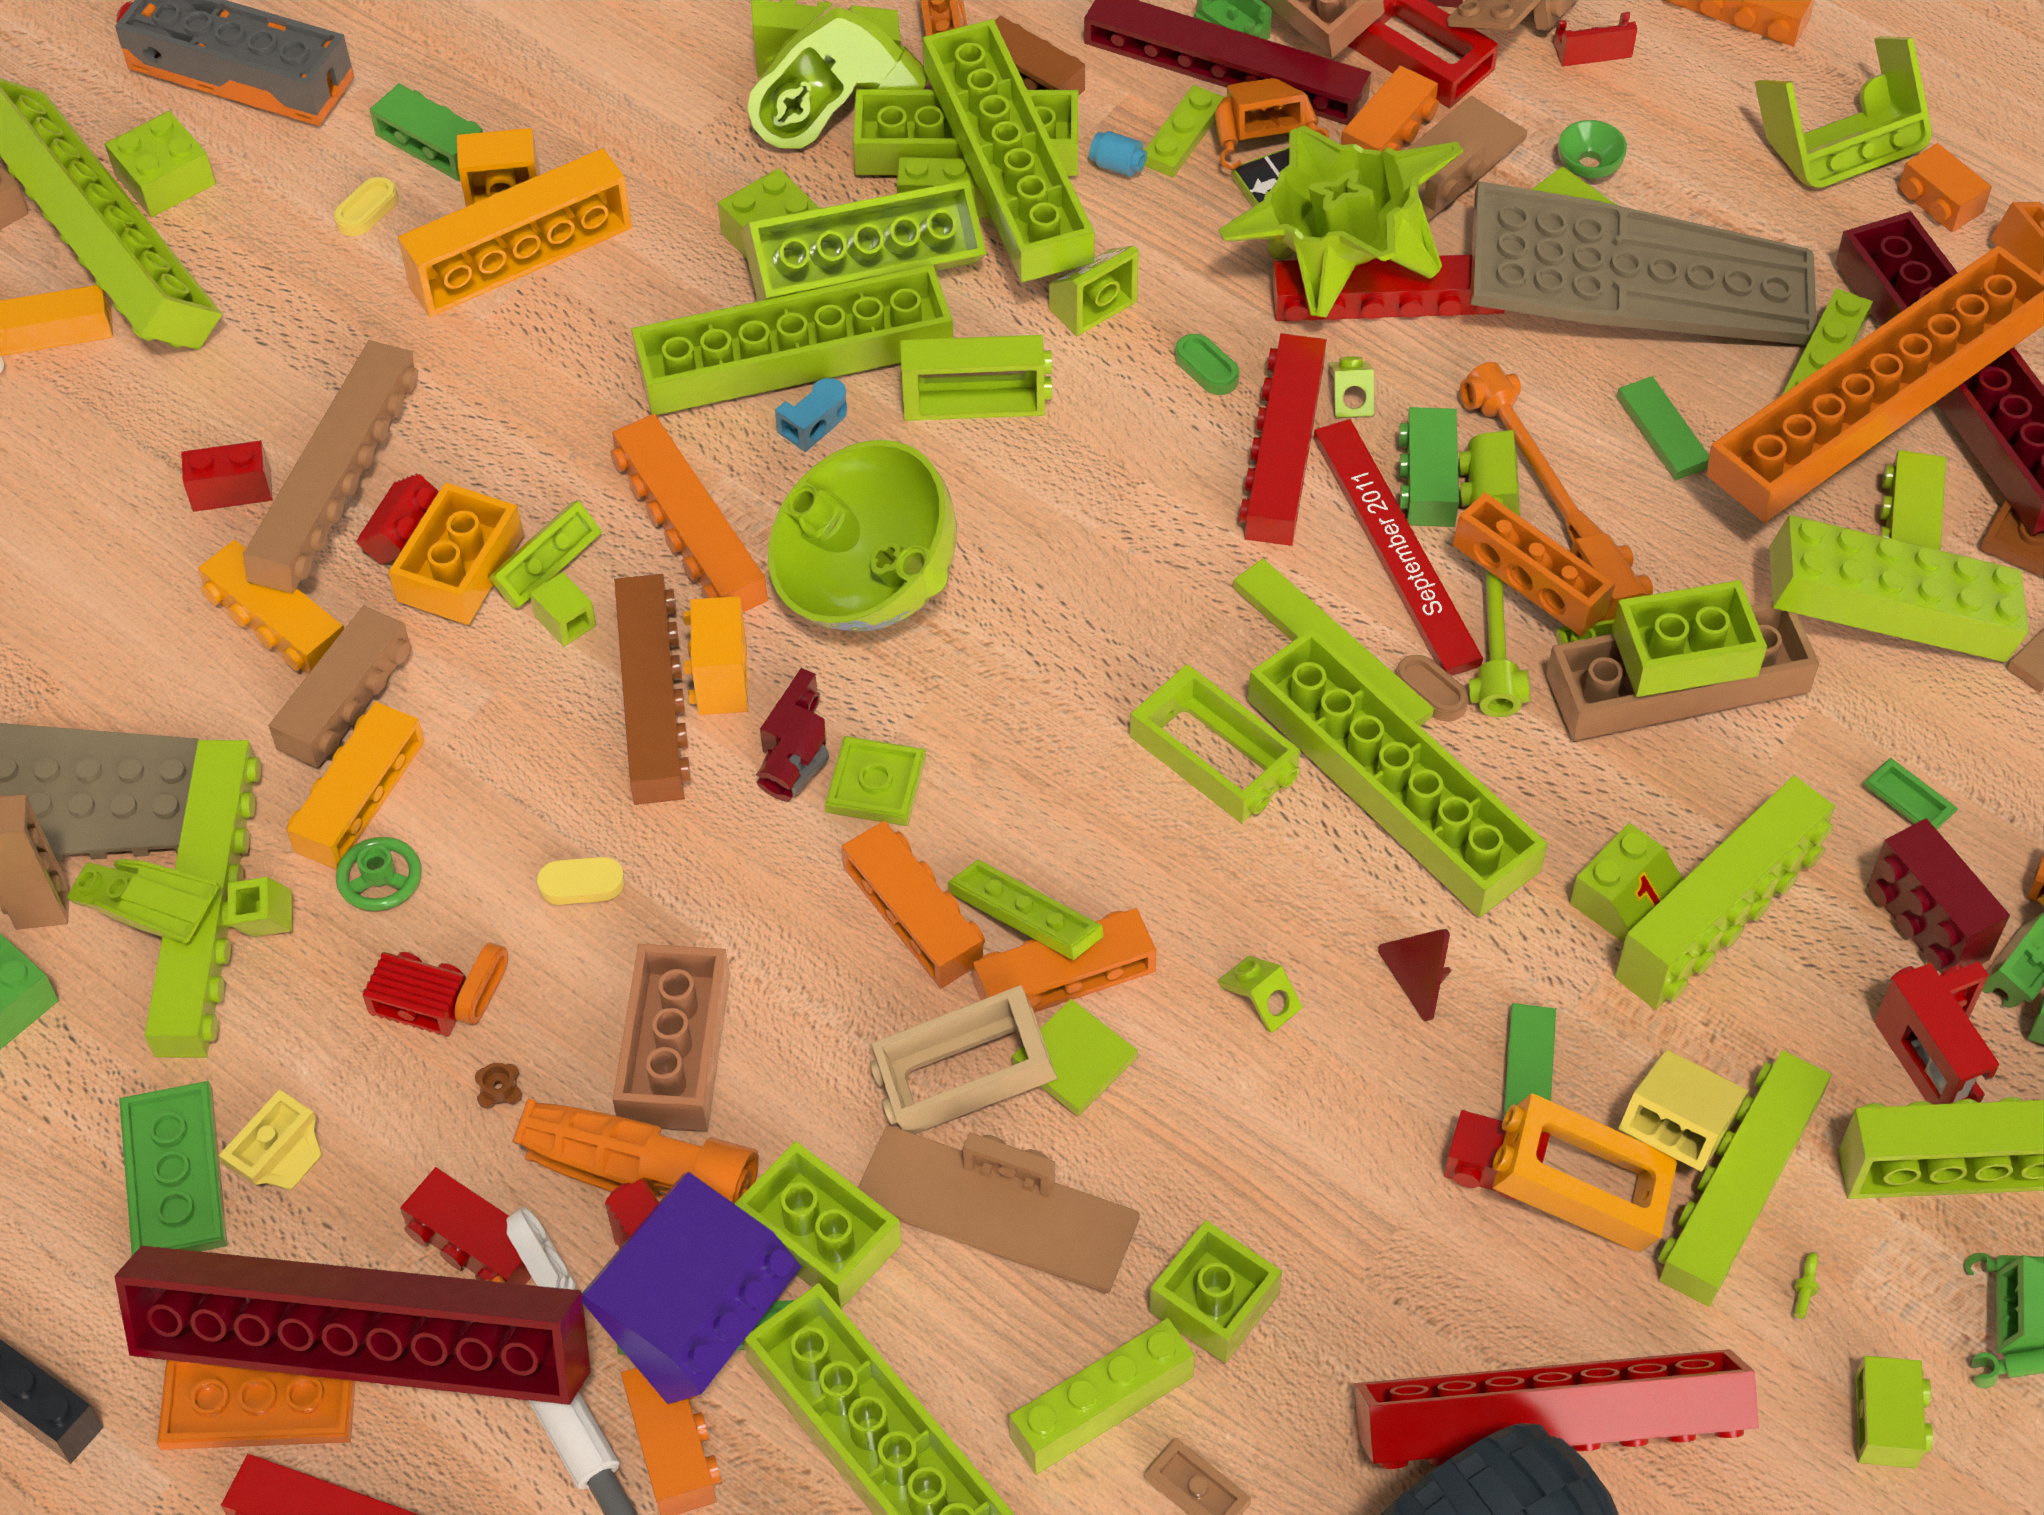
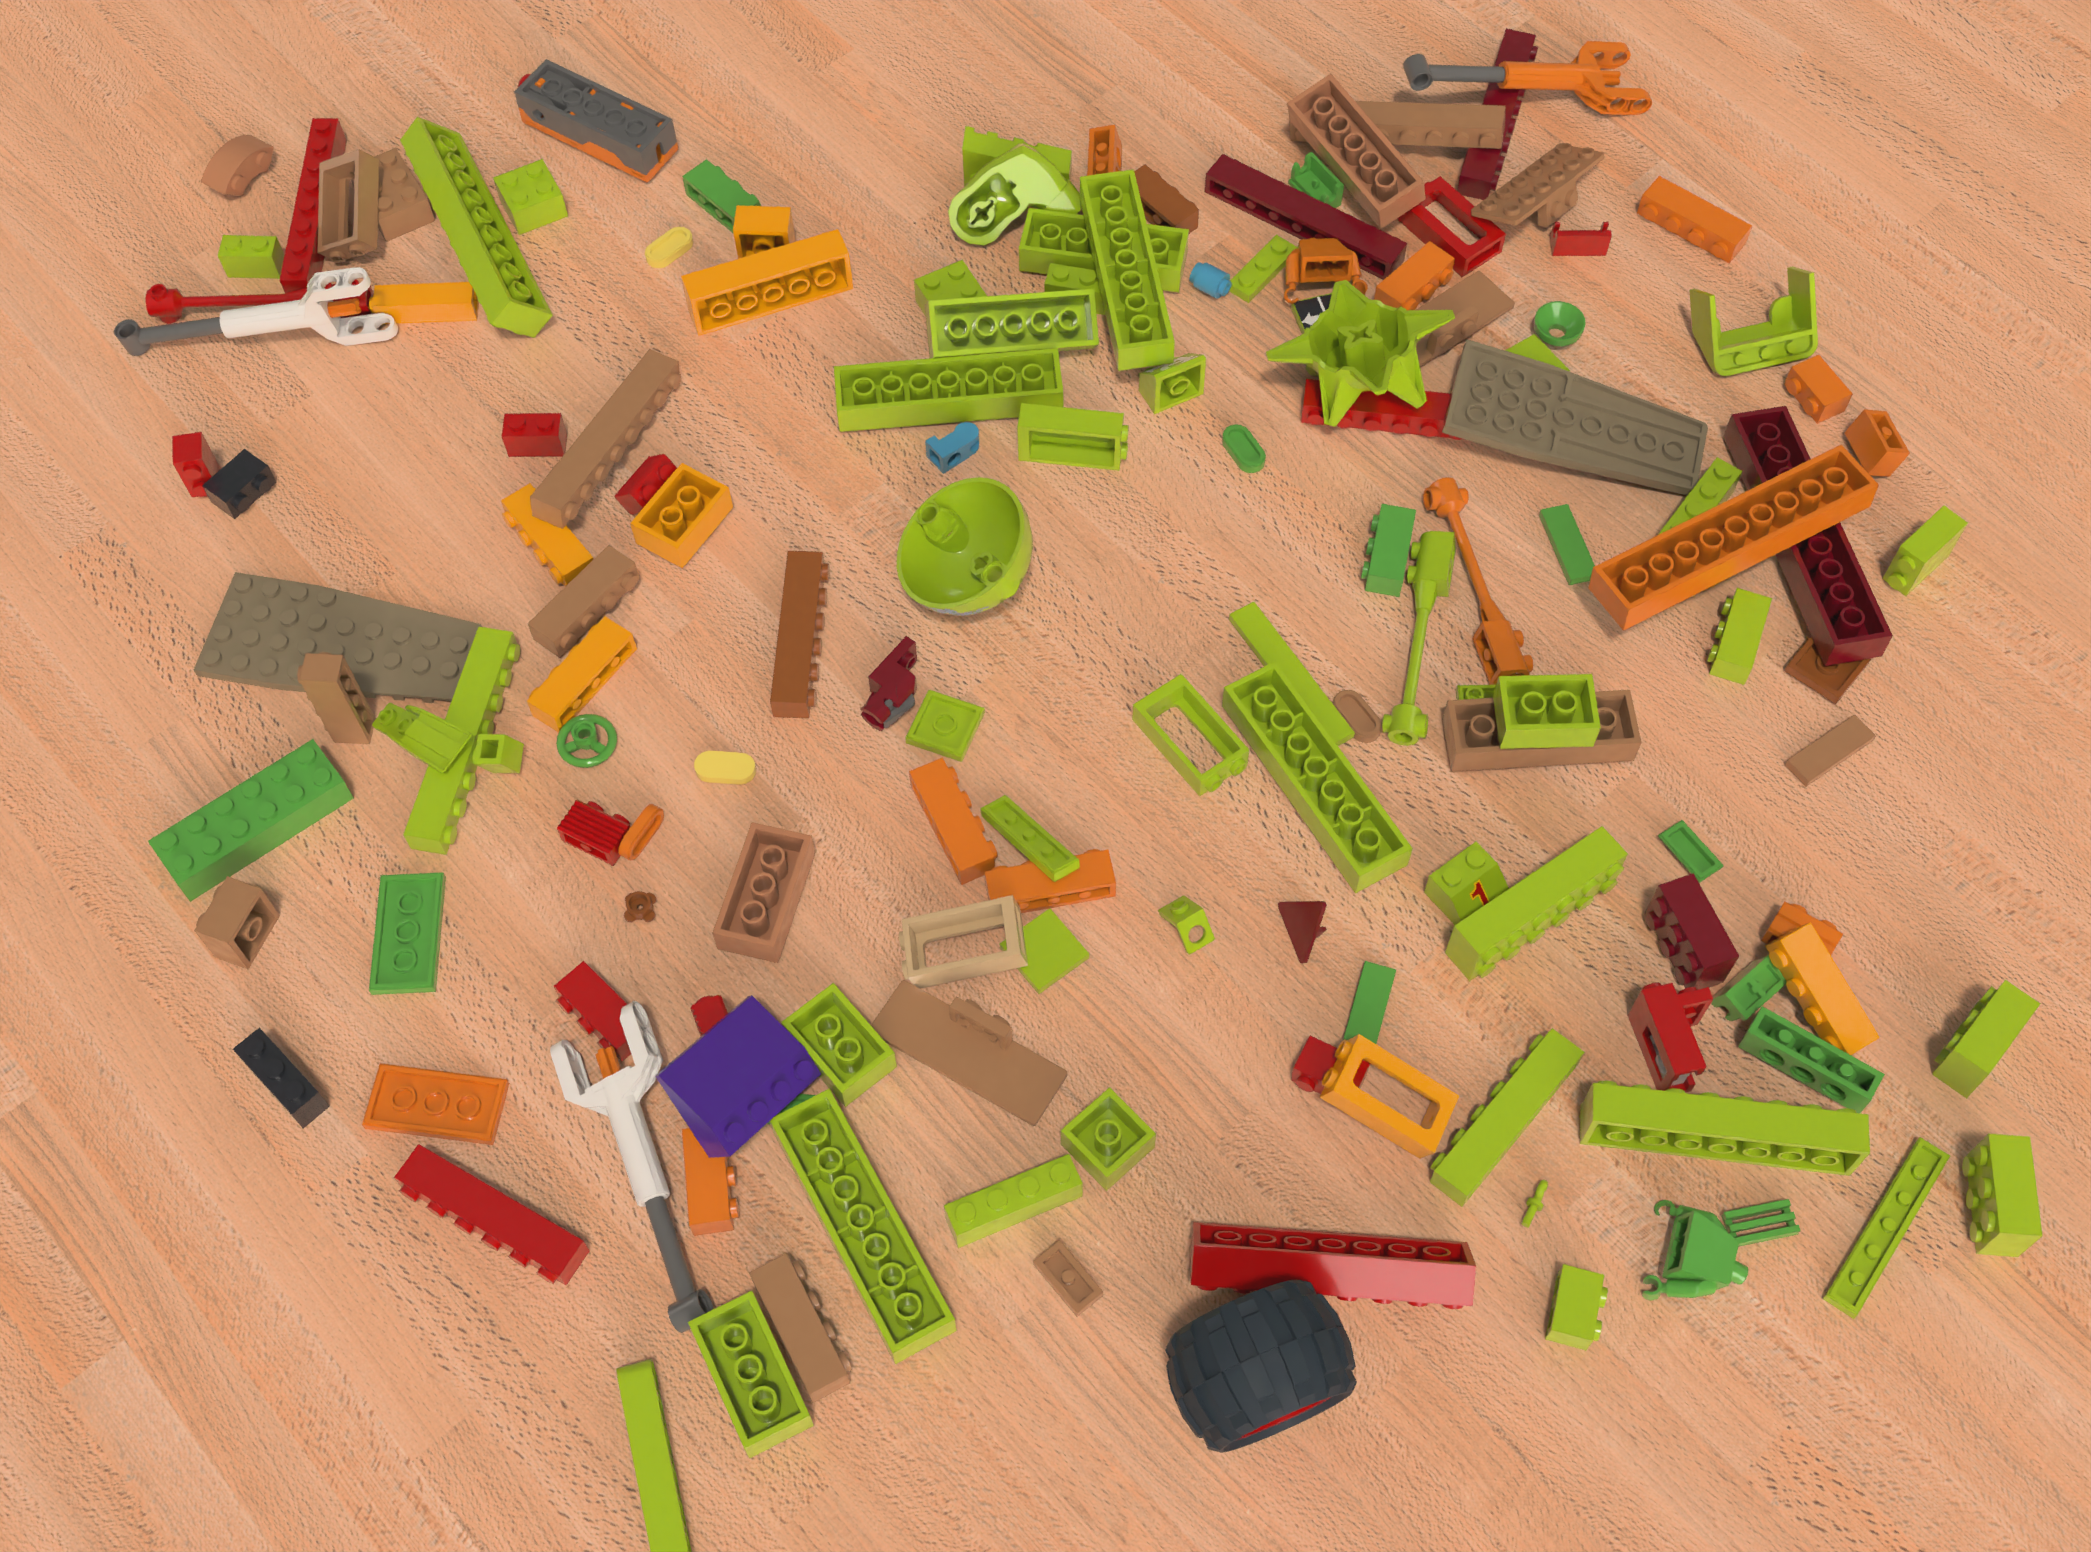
camera: 10 degrees right, 5 degrees up
(275, 1144) = (479, 926): light yellow slope -> none
(355, 1324) = (505, 1067): dark red brick -> none
(545, 554) = (744, 524): lime plate -> none
(563, 609) = (749, 566): lime brick -> none
(620, 1150) = (720, 973): orange piece -> none
(687, 513) = (850, 510): orange brick -> none
(717, 655) = (849, 618): light orange container -> none
(1284, 441) = (1287, 515): red brick -> none
(1352, 372) = (1345, 470): lime bracket -> none
(1398, 548) = (1354, 607): red tile -> none
(1533, 564) = (1446, 636): orange brick -> none
(1683, 1110) = (1470, 1061): light yellow brick -> none
(1898, 588) = (1712, 694): lime brick -> none

